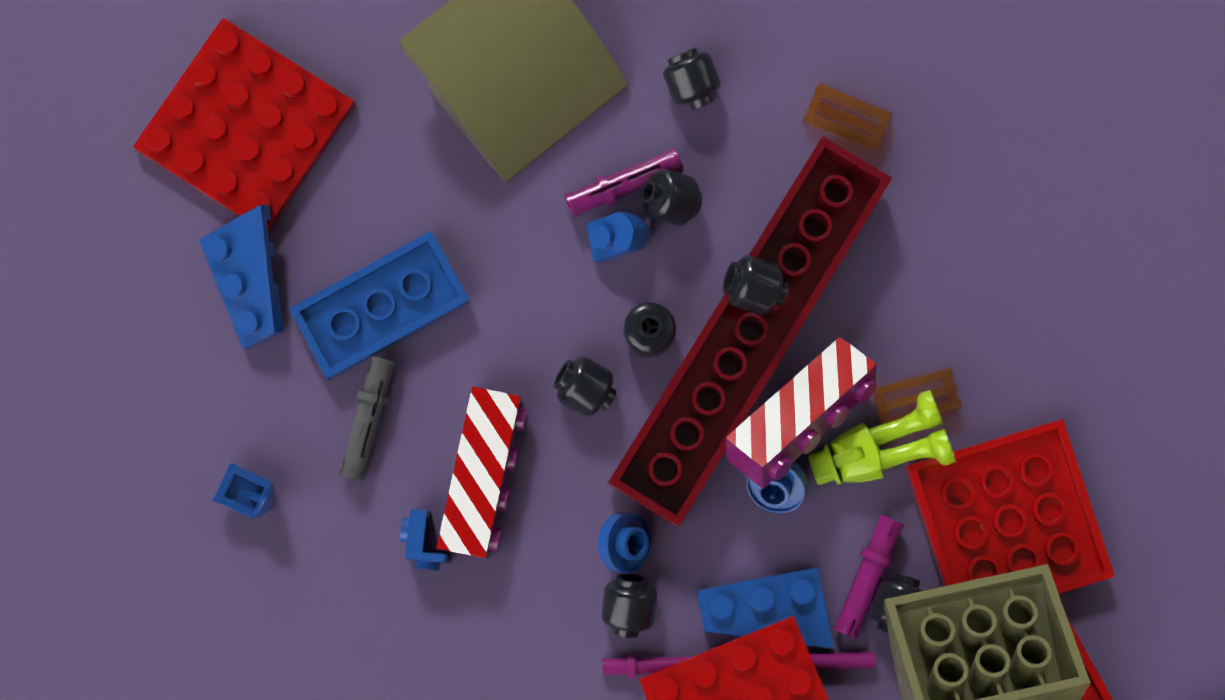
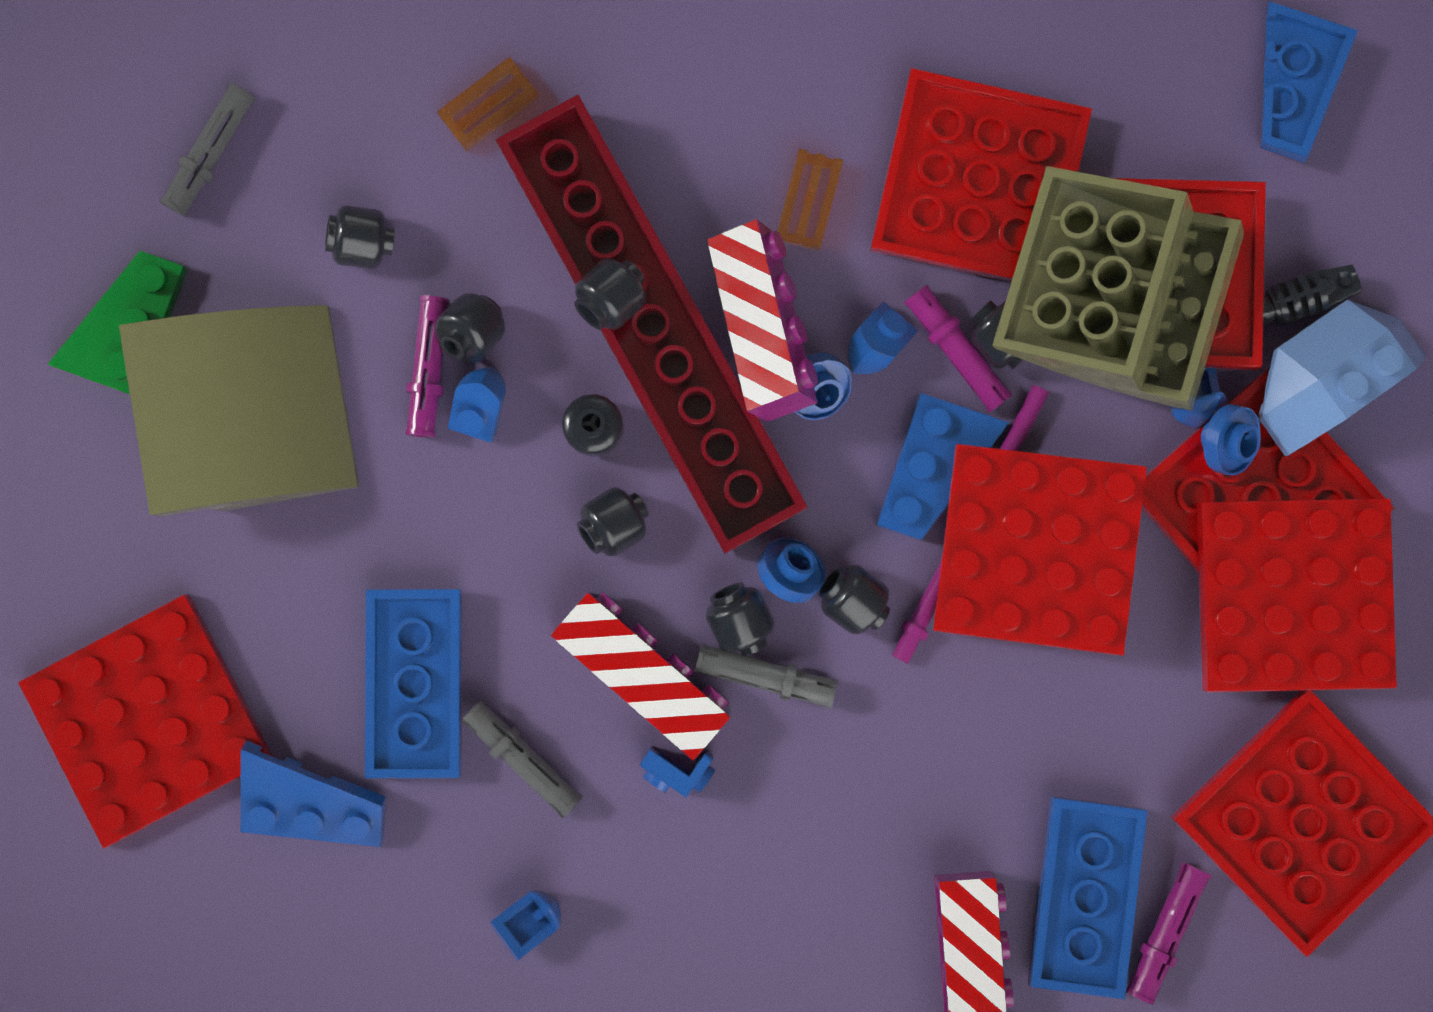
camera: 60 degrees left, 5 degrees up
(534, 578) = (767, 676): none -> dark grey pin
(564, 524) = (739, 619): none -> black head
(839, 512) = (879, 340): none -> blue plate
(857, 455) = (835, 290): lime piece -> none

